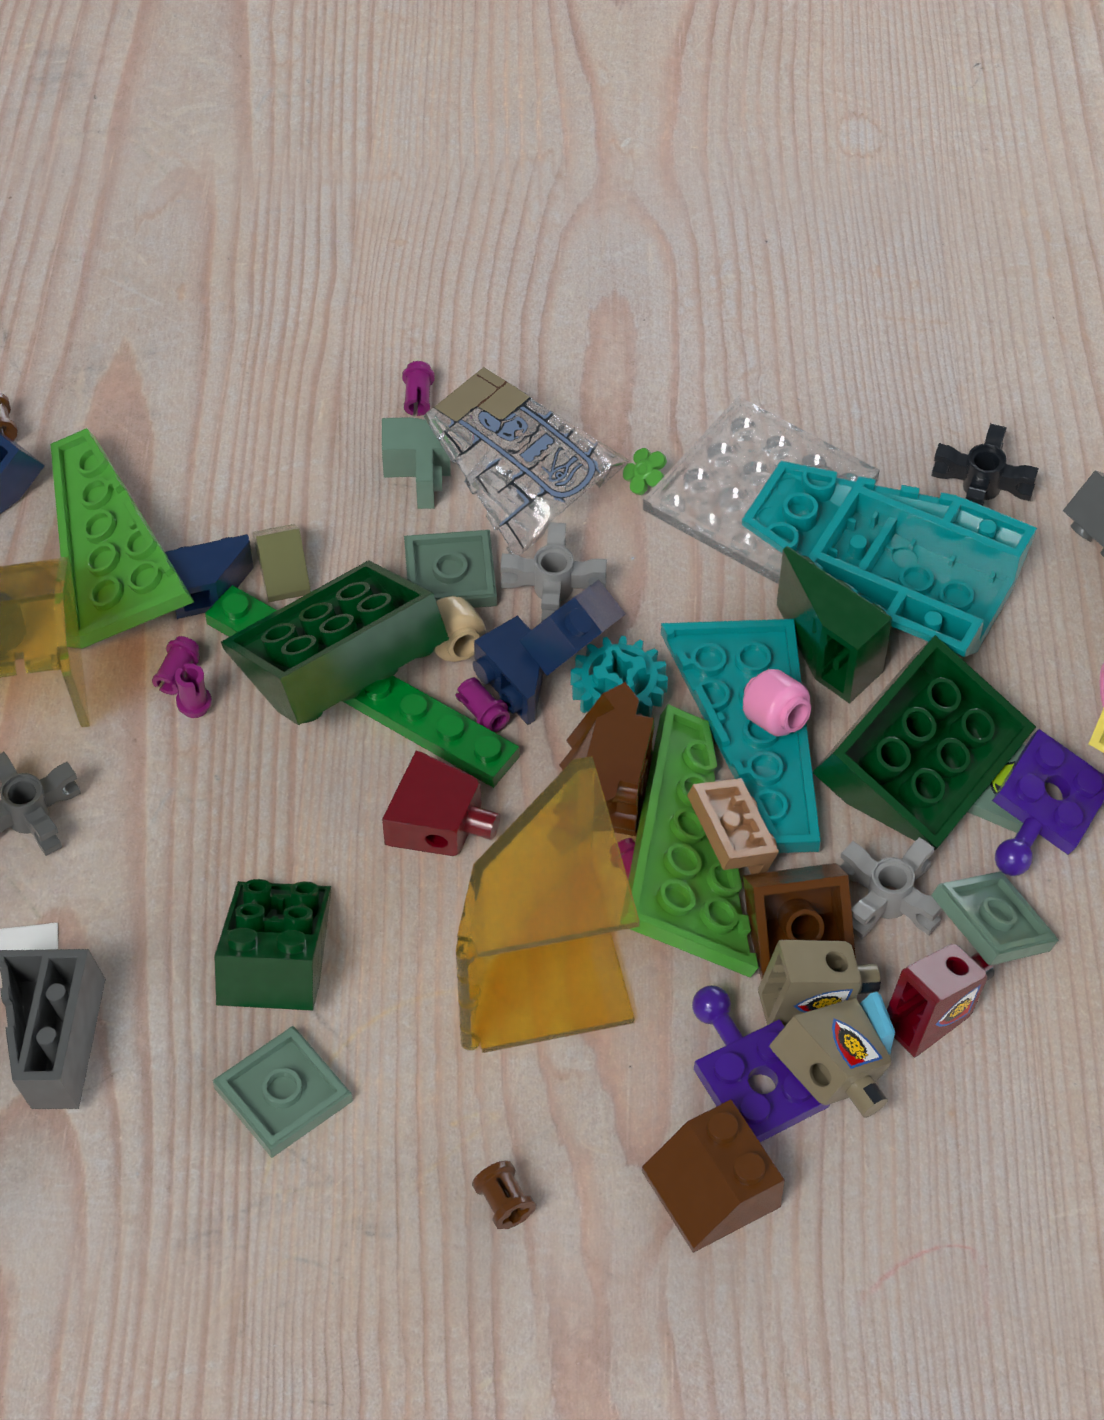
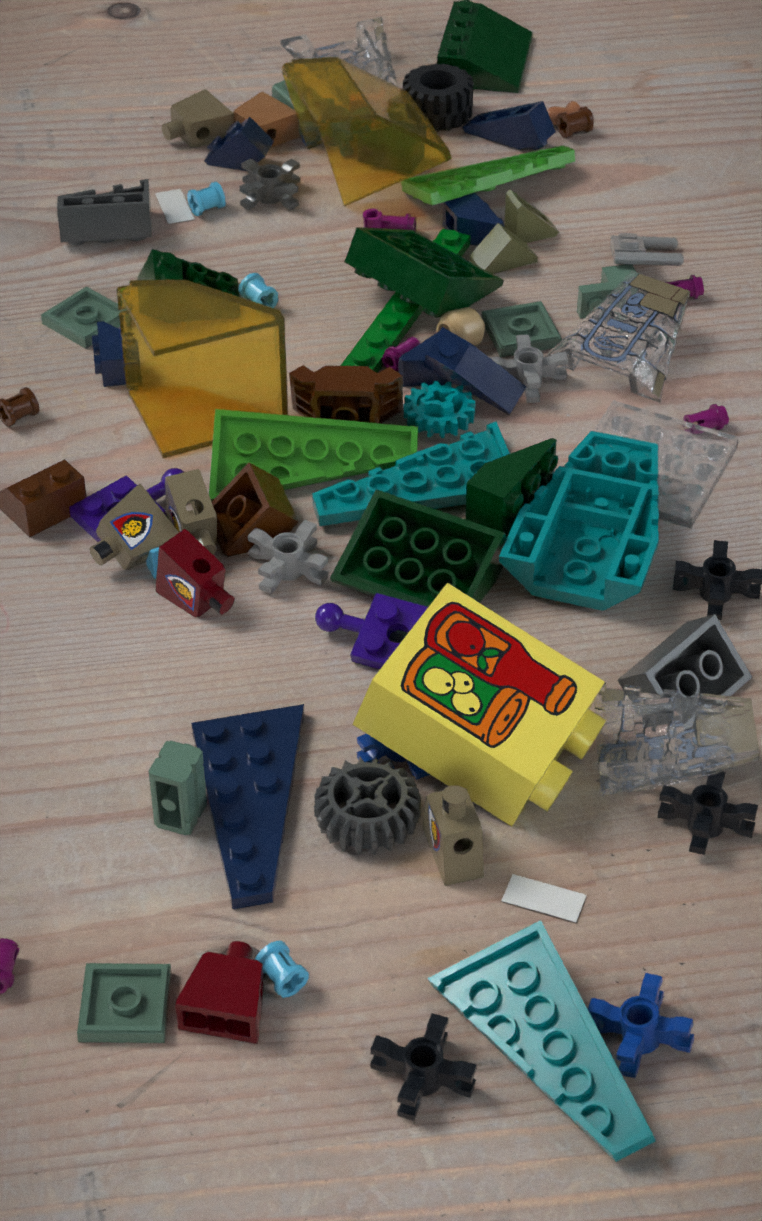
camera: 80 degrees right, 10 degrees down
(32, 892) = (206, 198): none -> medium azure bush
(222, 516) = (526, 220): none -> olive slope
(299, 852) = (254, 289): none -> medium azure bush
(341, 417) = (631, 250): none -> light grey plate
(408, 1049) = (110, 355): none -> dark blue slope
(436, 809) = (311, 339): dark red torso -> none
(645, 471) = (650, 402): bright green plant -> none
(685, 415) = (711, 418): none -> magenta pin
(733, 825) = (316, 467): medium nougat bracket -> none
(776, 702) = (426, 469): bright pink head -> none
(994, 918) = (269, 607): sand green tile -> none

